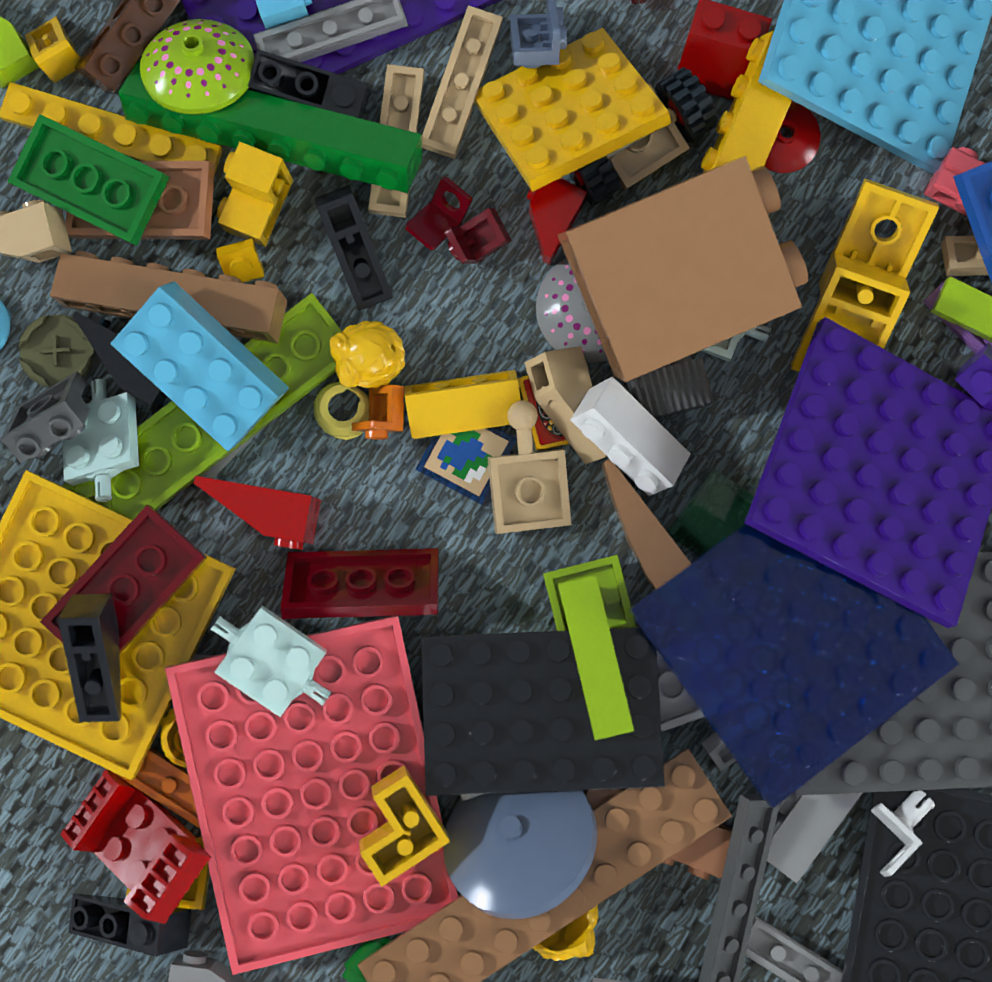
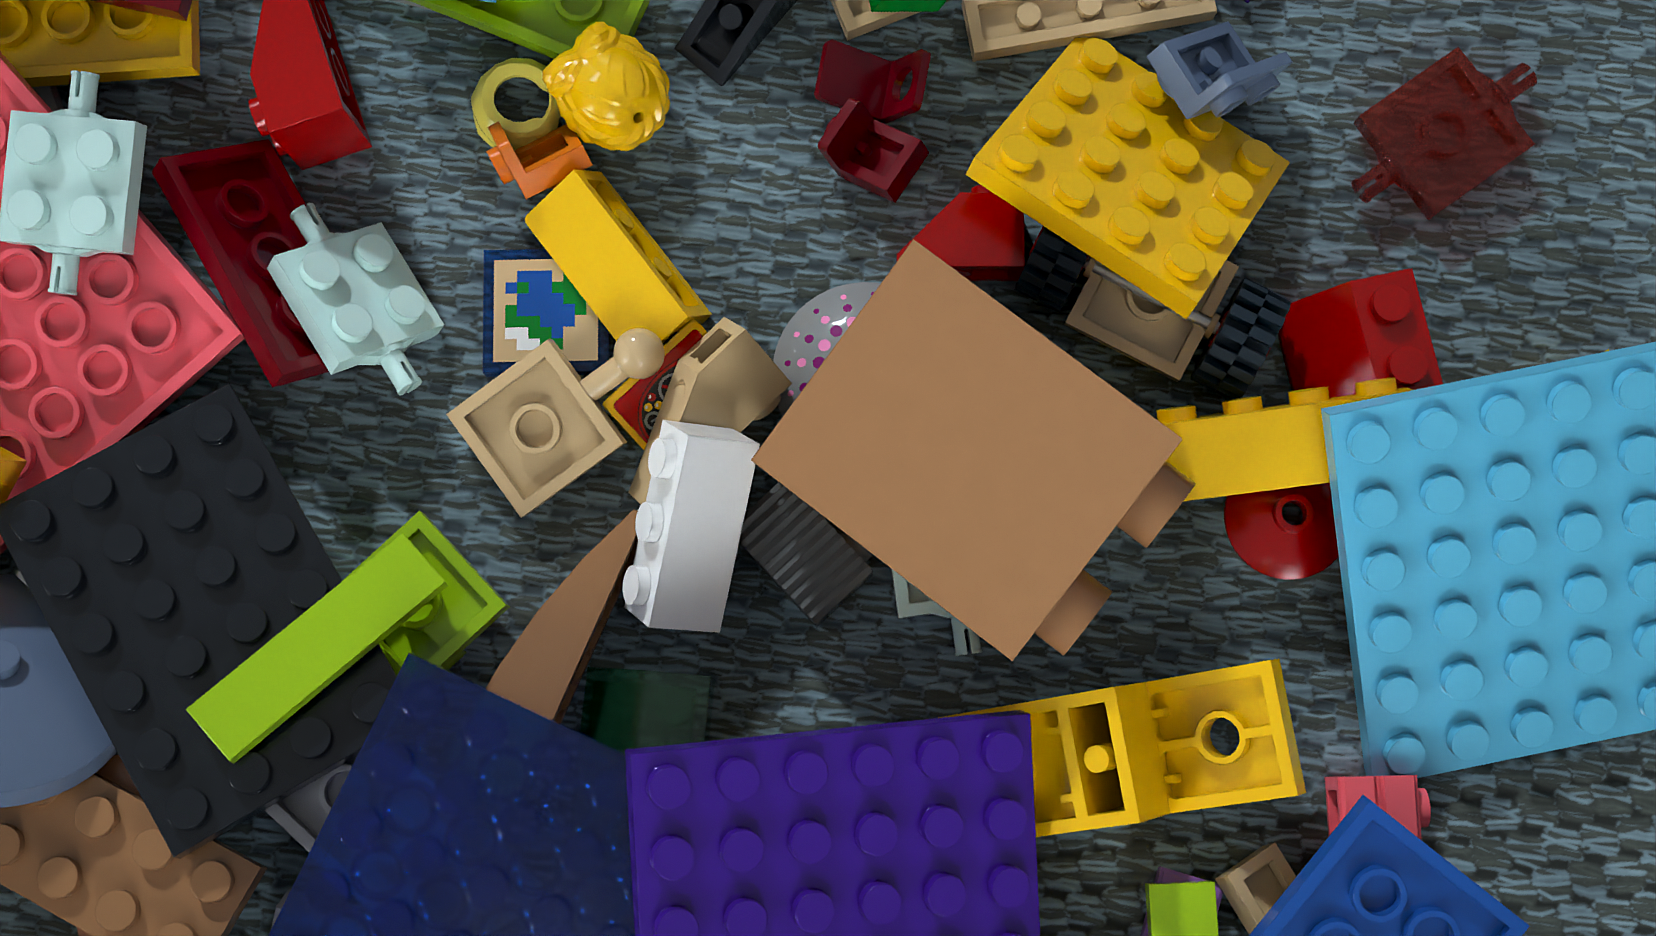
camera: 60 degrees right, 5 degrees down
(406, 548) = (355, 298): none -> light aqua plate

